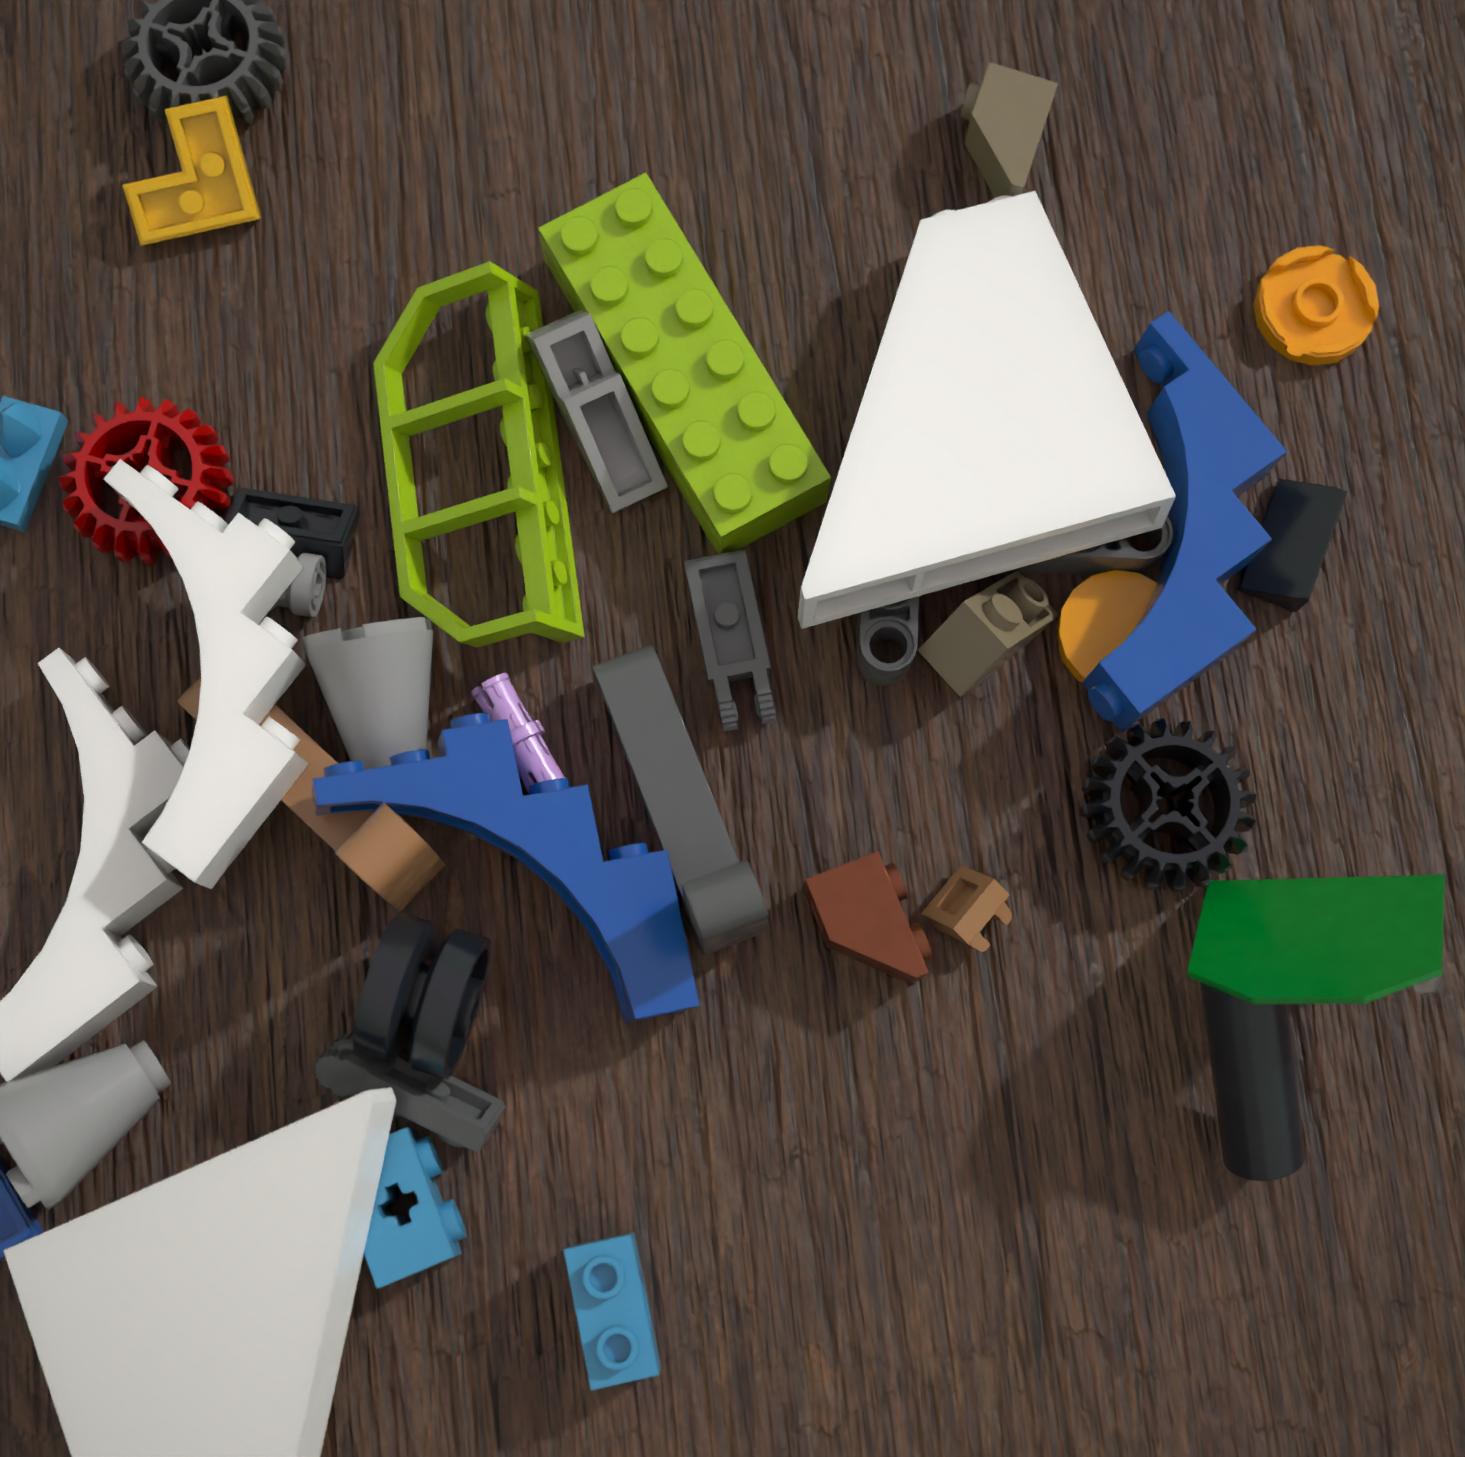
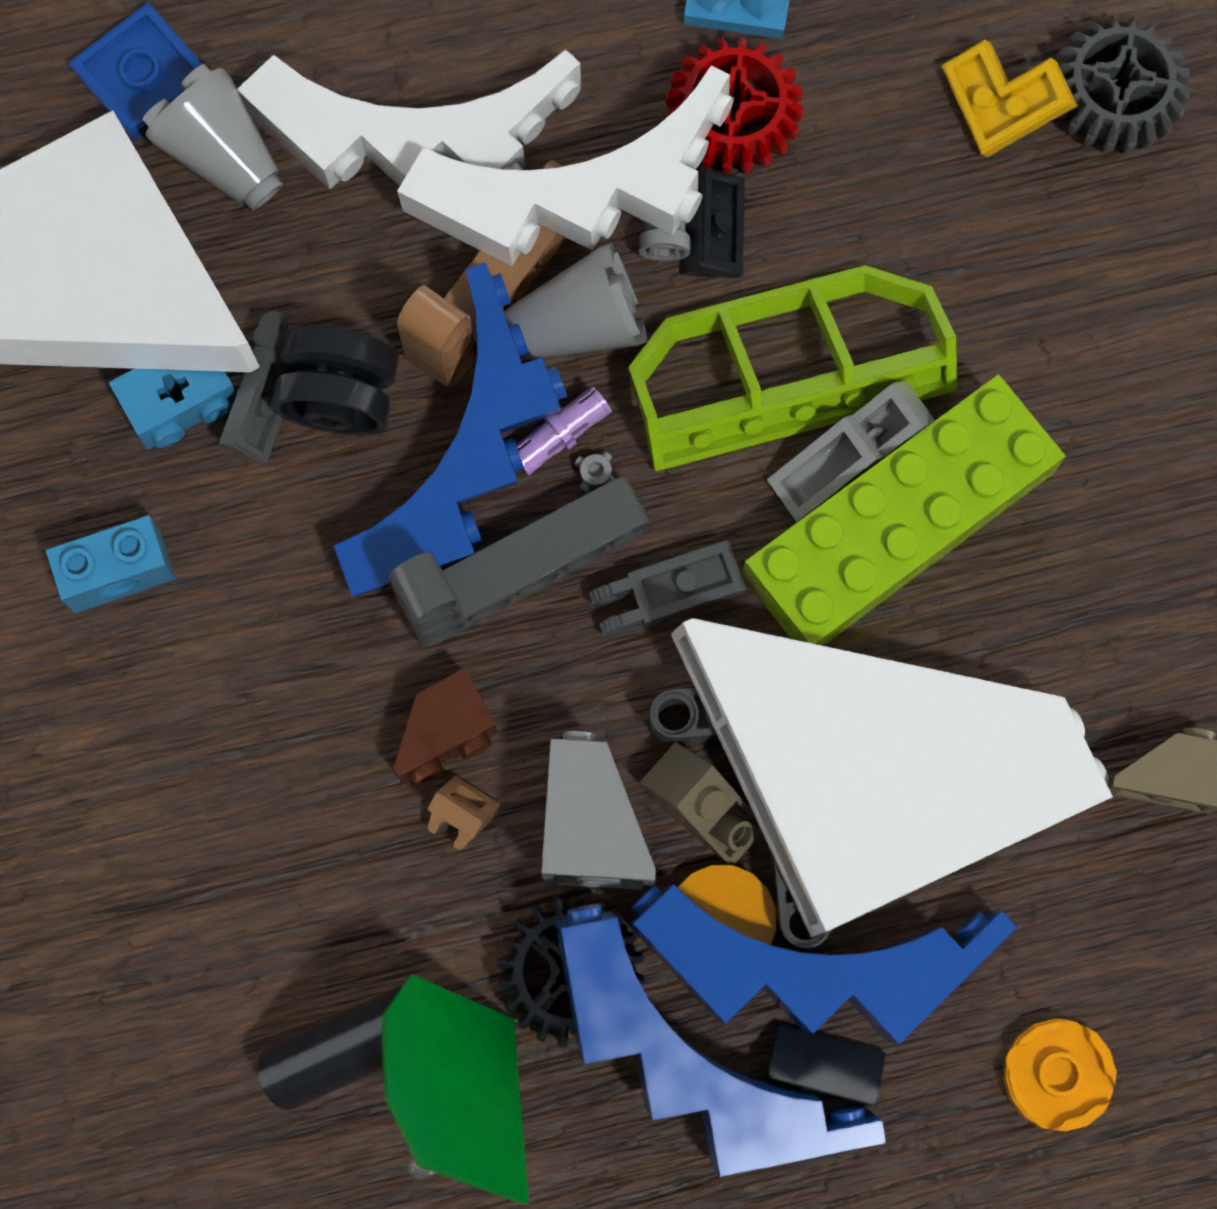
camera: 85 degrees right, 0 degrees up
(575, 705) = (594, 471): none -> light grey piece
(1006, 753) = (590, 821): none -> light grey slope
(1352, 631) = (744, 1119): none -> arch

